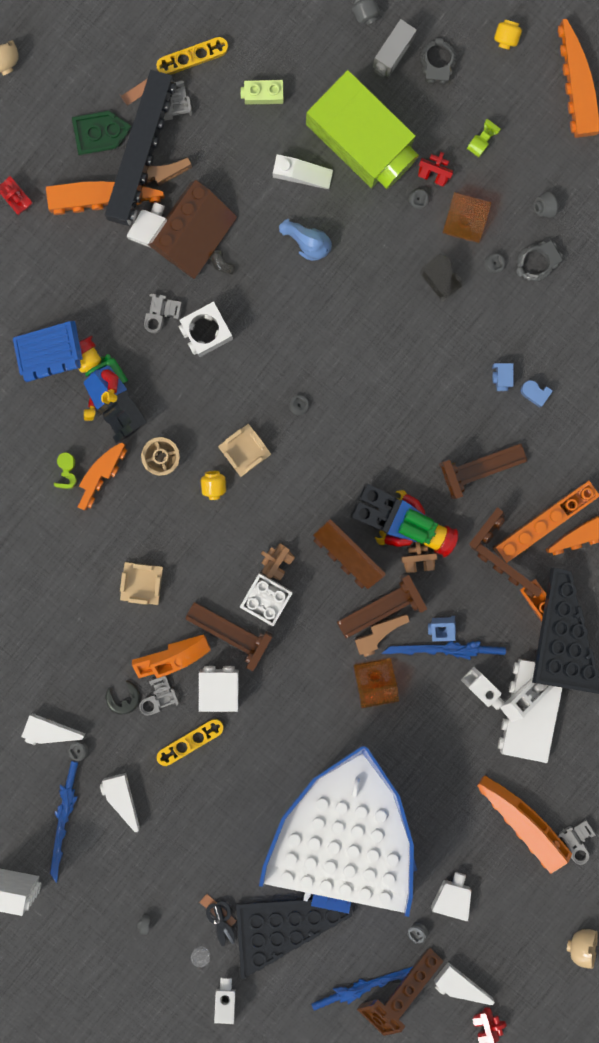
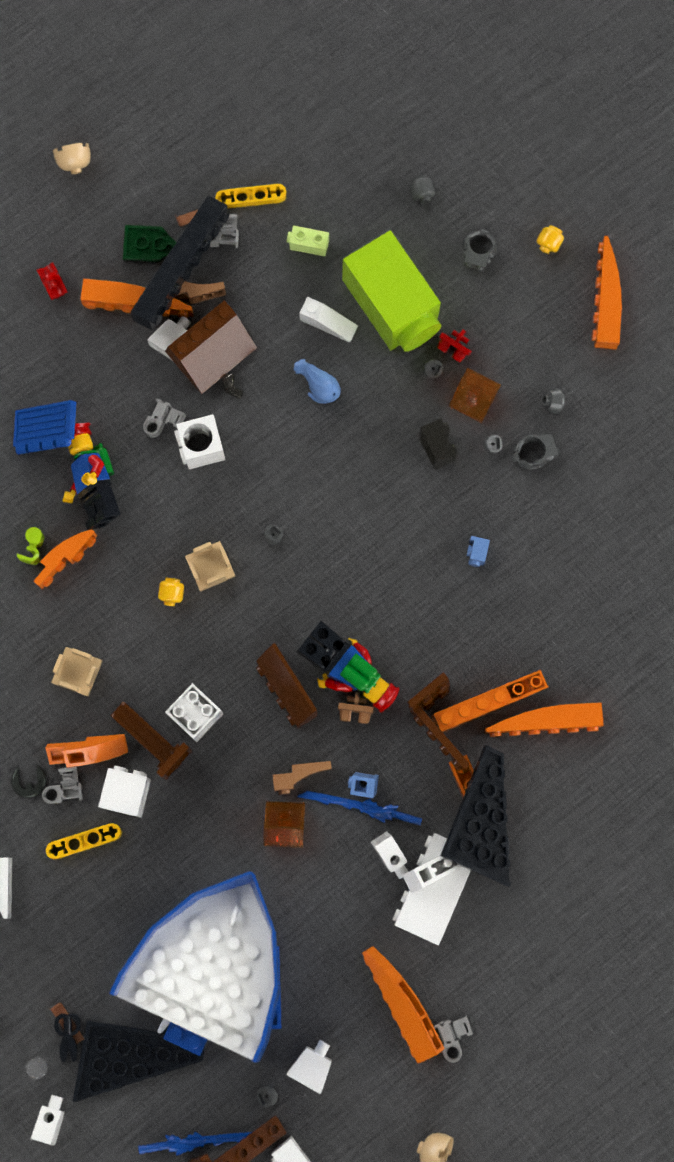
camera: 10 degrees right, 10 degrees down
(160, 456) = (126, 550): tan cylinder -> none
(274, 559) = (220, 673): medium nougat hips -> none
(383, 607) = (308, 749): reddish brown bracket -> none
(394, 49) = (440, 227): light grey window -> none
(458, 476) = (435, 635): reddish brown bracket -> none
(480, 143) = (501, 331): lime leg -> none
(533, 393) = (504, 575): medium blue leg -> none

